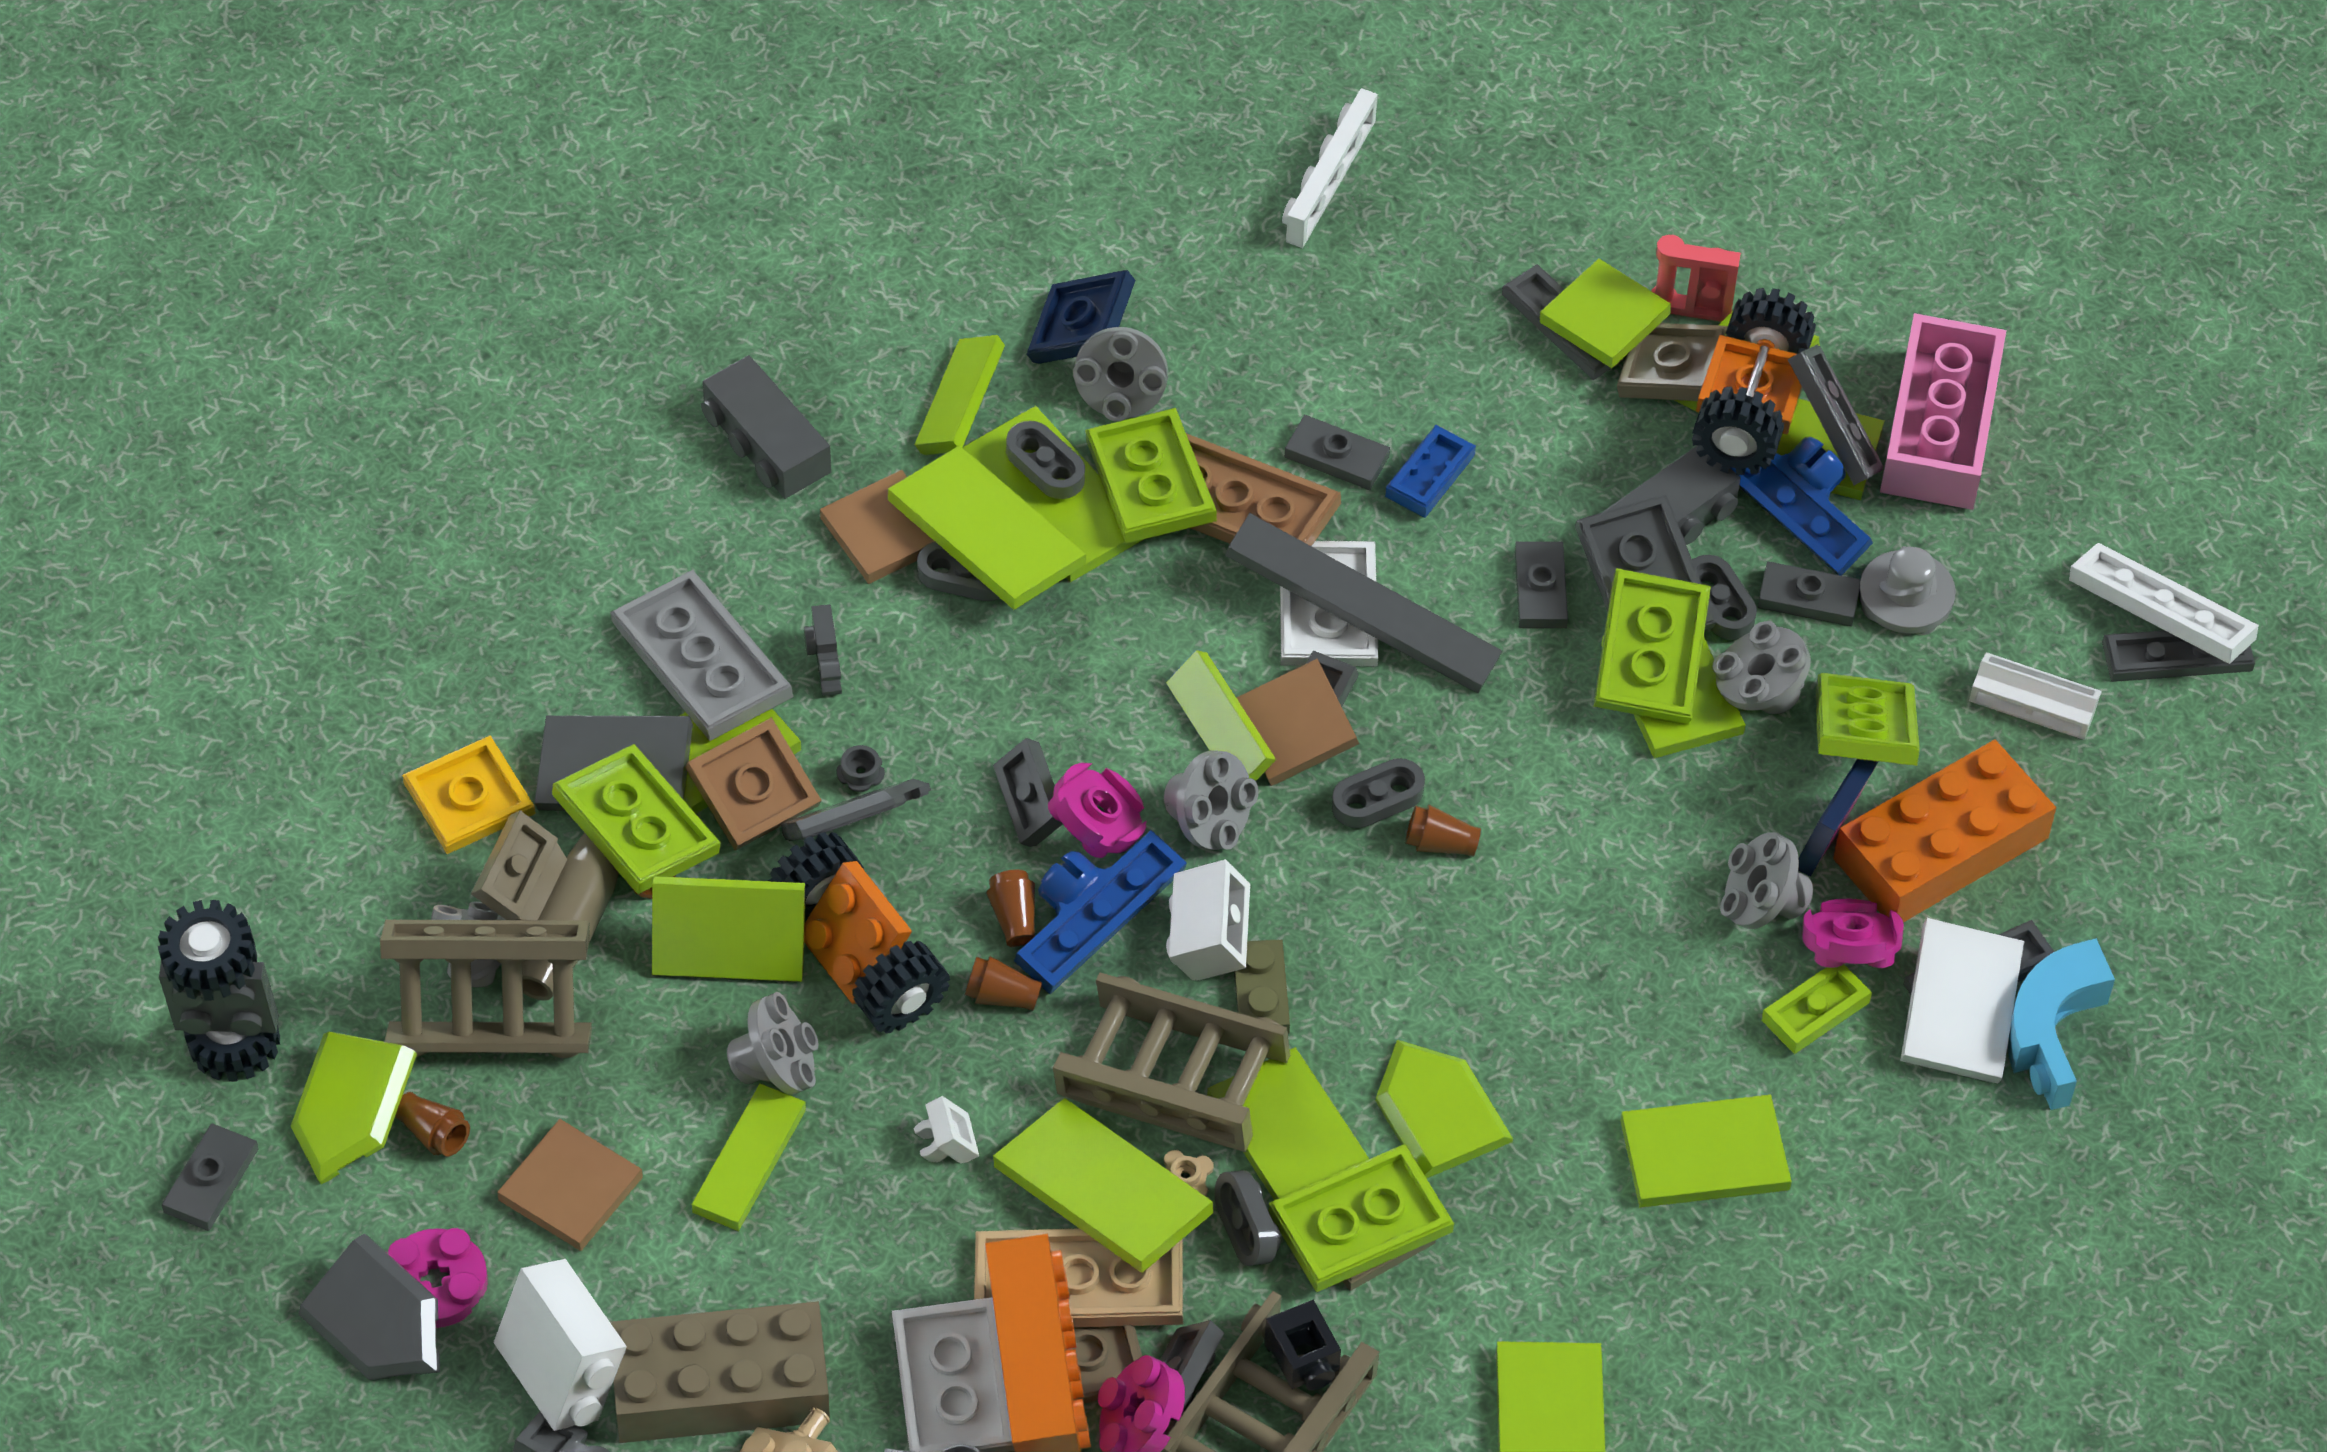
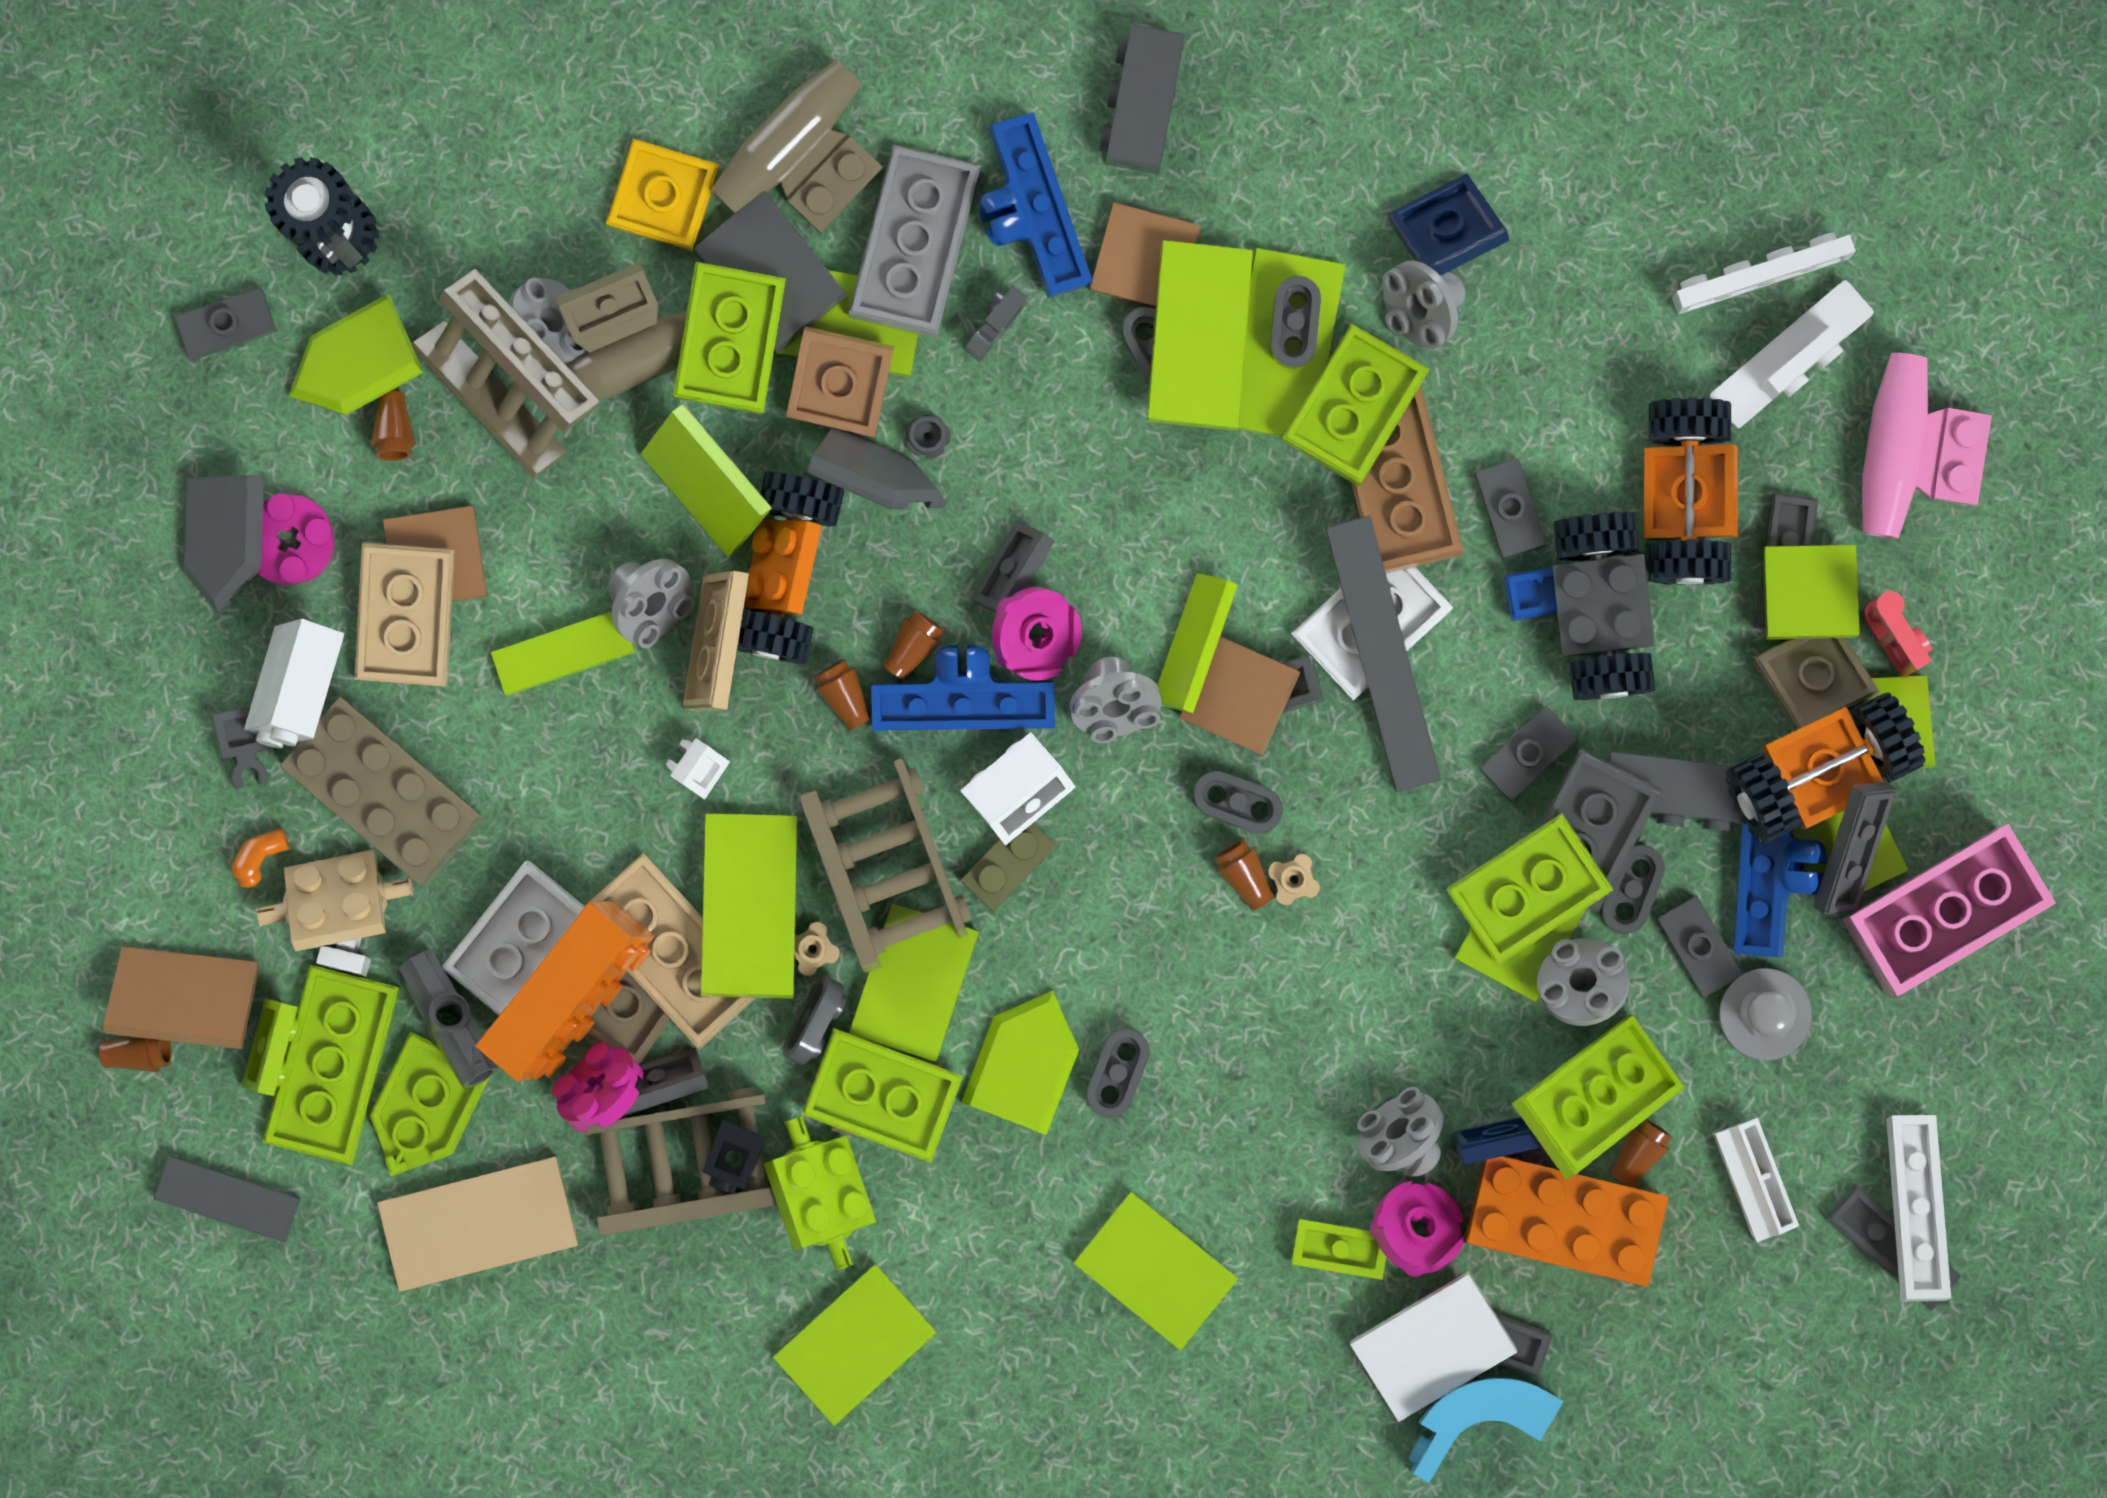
camera: 50 degrees right, 30 degrees up
(540, 671) = (799, 150): none -> dark tan plate
(594, 1226) = (404, 614): none -> tan tile
(765, 560) = (1033, 207): none -> blue plate
(864, 1024) = (715, 641): none -> tan tile
(959, 394) = (1304, 203): lime tile -> none
(1397, 1324) = (819, 1193): none -> lime plate
(1412, 200) = (1791, 354): none -> white bracket
(1448, 322) = (1690, 491): none -> plate
(1479, 436) = (1604, 605): none -> plate
(1480, 817) = (1286, 890): none -> tan plate
(1513, 1047) = (1118, 1073): none -> dark grey plate
(1565, 179) = (1919, 450): none -> bright pink plate
(1937, 741) = (1640, 1152): none -> dark orange cone

